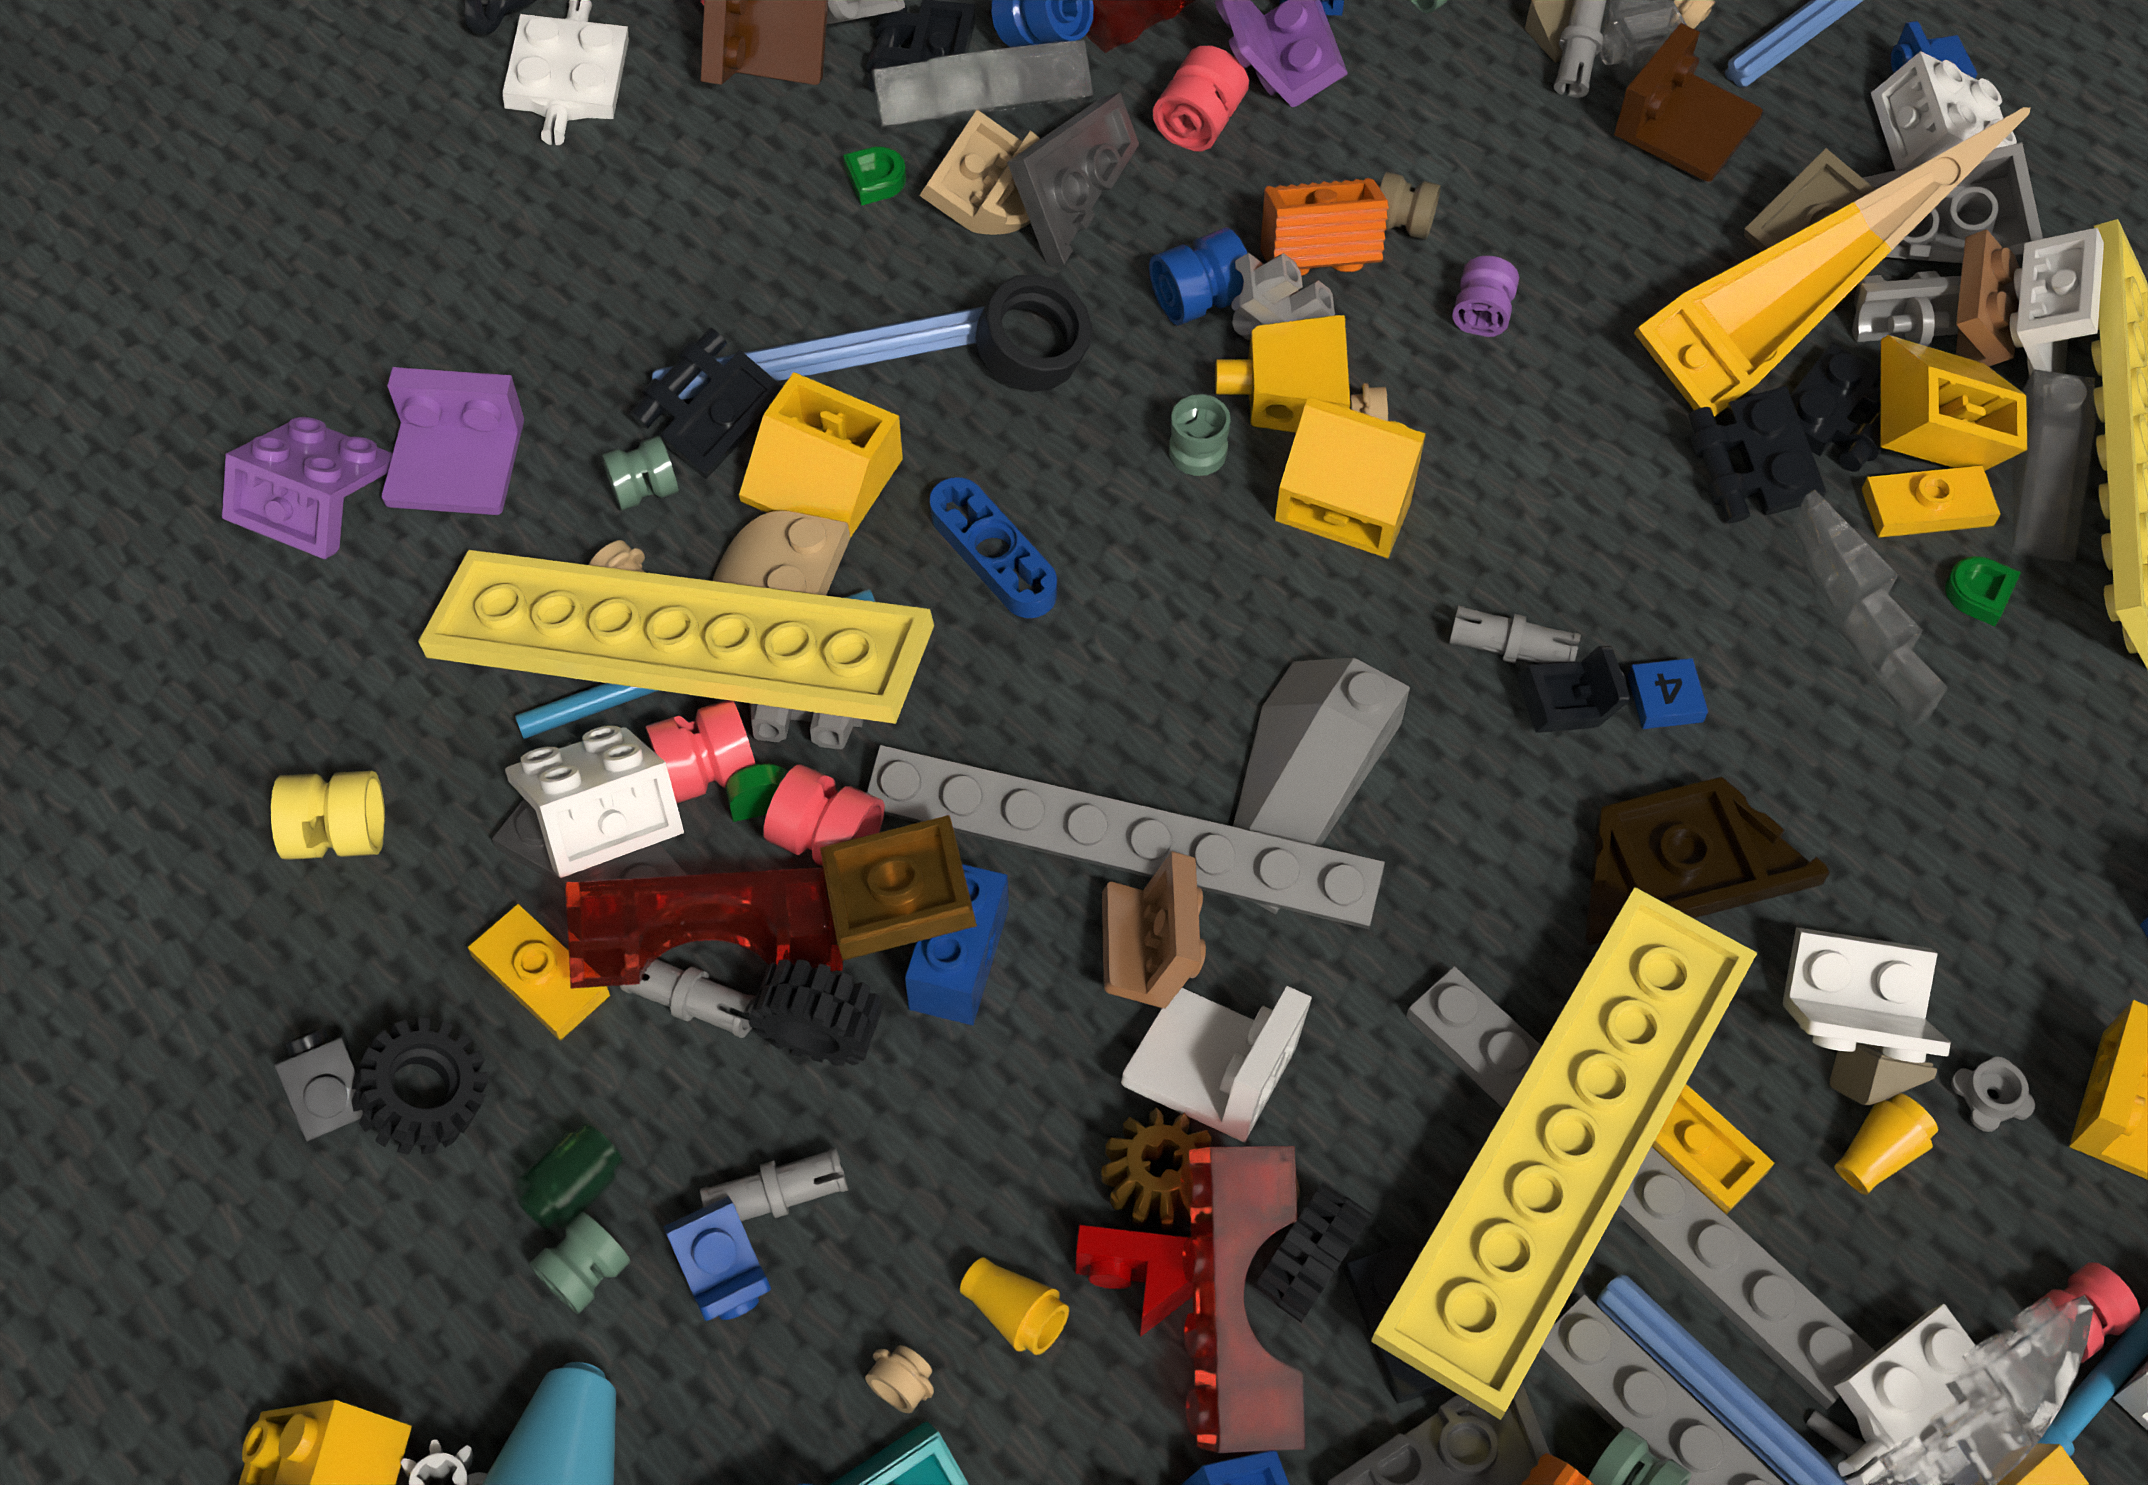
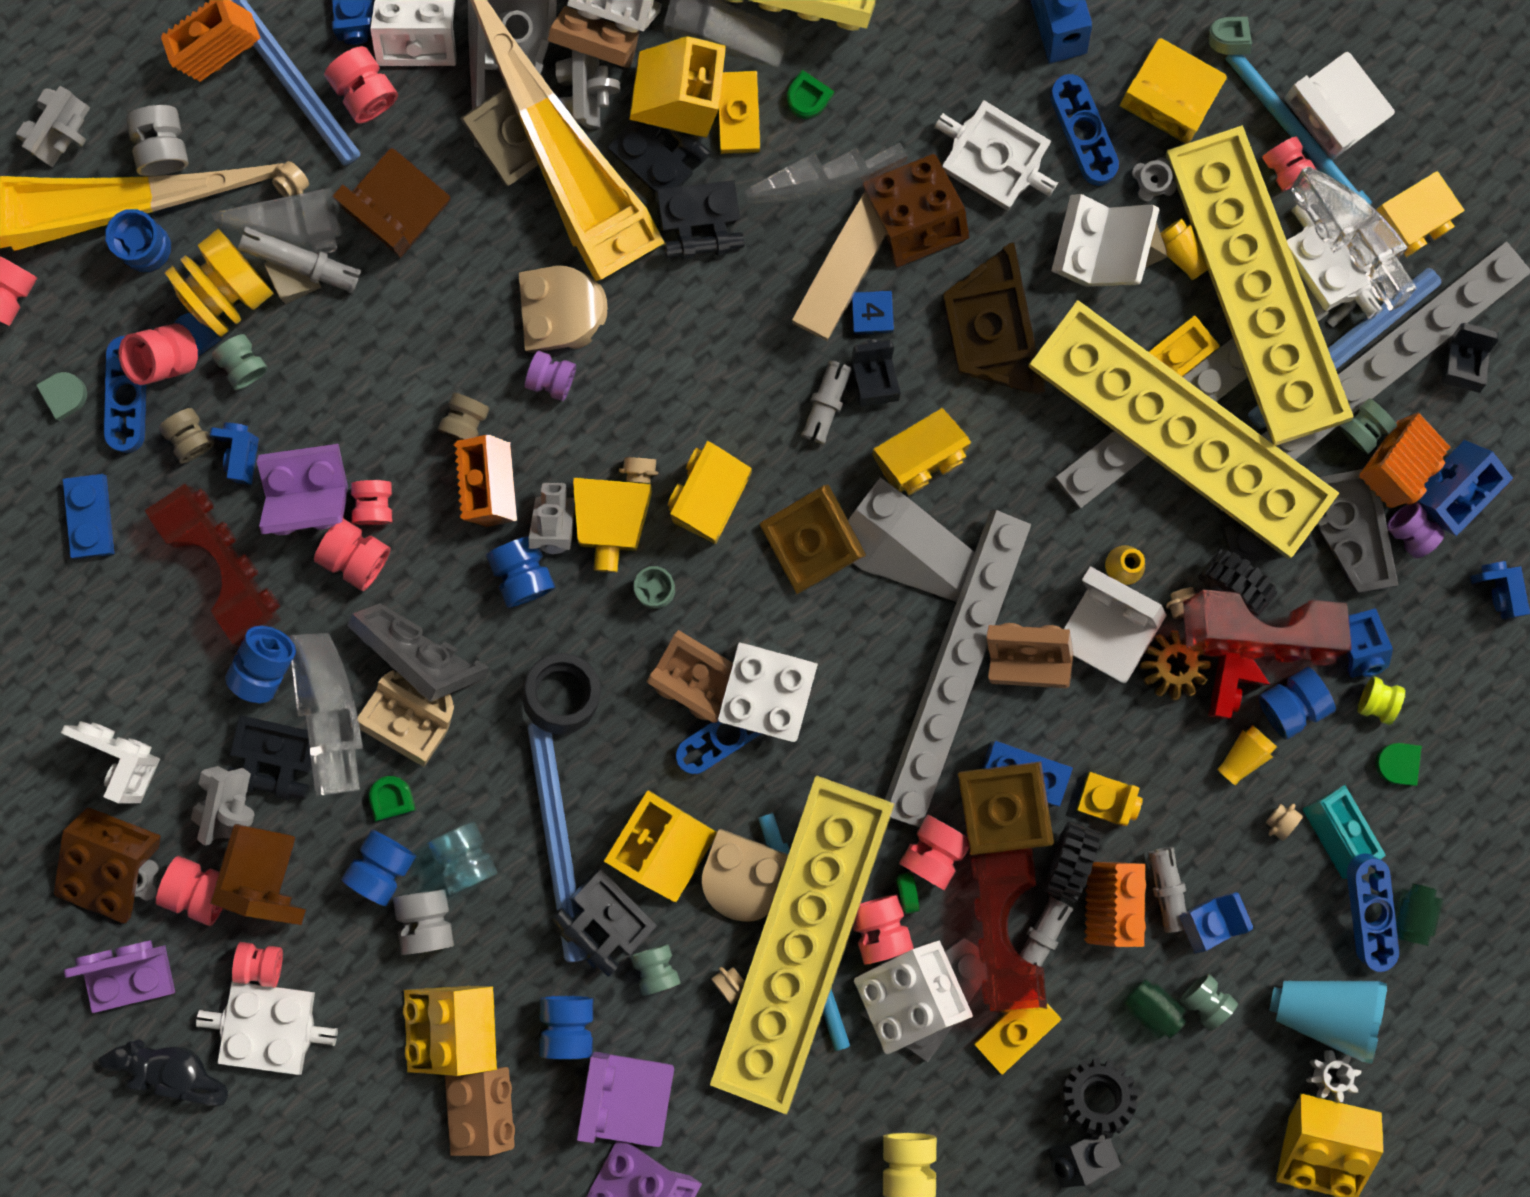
camera: 85 degrees left, 25 degrees up
(444, 293) = (480, 1113): none -> medium nougat bracket
(556, 248) = (450, 1030): none -> yellow slope
(558, 369) = (566, 1027): none -> blue wheel
(648, 46) = (257, 964): none -> coral wheel
(707, 204) = (423, 922): none -> light grey wheel
(745, 1094) = (1116, 904): none -> orange brick
(785, 157) = (380, 864): none -> blue wheel
(791, 241) = (462, 858): none -> clear light blue wheel
(923, 1085) = (1109, 799): none -> yellow bracket
(1063, 572) = (767, 692): none -> white bracket
(1070, 493) = (692, 676): none -> medium nougat bracket
(1118, 1385) = (1292, 705): none -> blue wheel
(1274, 118) = (371, 502): none -> coral wheel
(1300, 624) = (812, 539): none -> pearl gold tile
(1324, 1082) = (1119, 571): none -> yellow cone
(1457, 757) = (922, 450): none -> yellow slope
(1584, 304) = (560, 308): none -> tan slope
(1736, 639) = (841, 271): none -> tan slope
(1839, 735) = (918, 209): none -> reddish brown bracket
(1840, 65) = (357, 78): none -> coral wheel
(1845, 1260) = (1259, 286): none -> light yellow plate
(1965, 845) = (996, 155): none -> white plate
(2058, 954) = (1106, 151): none -> blue beam

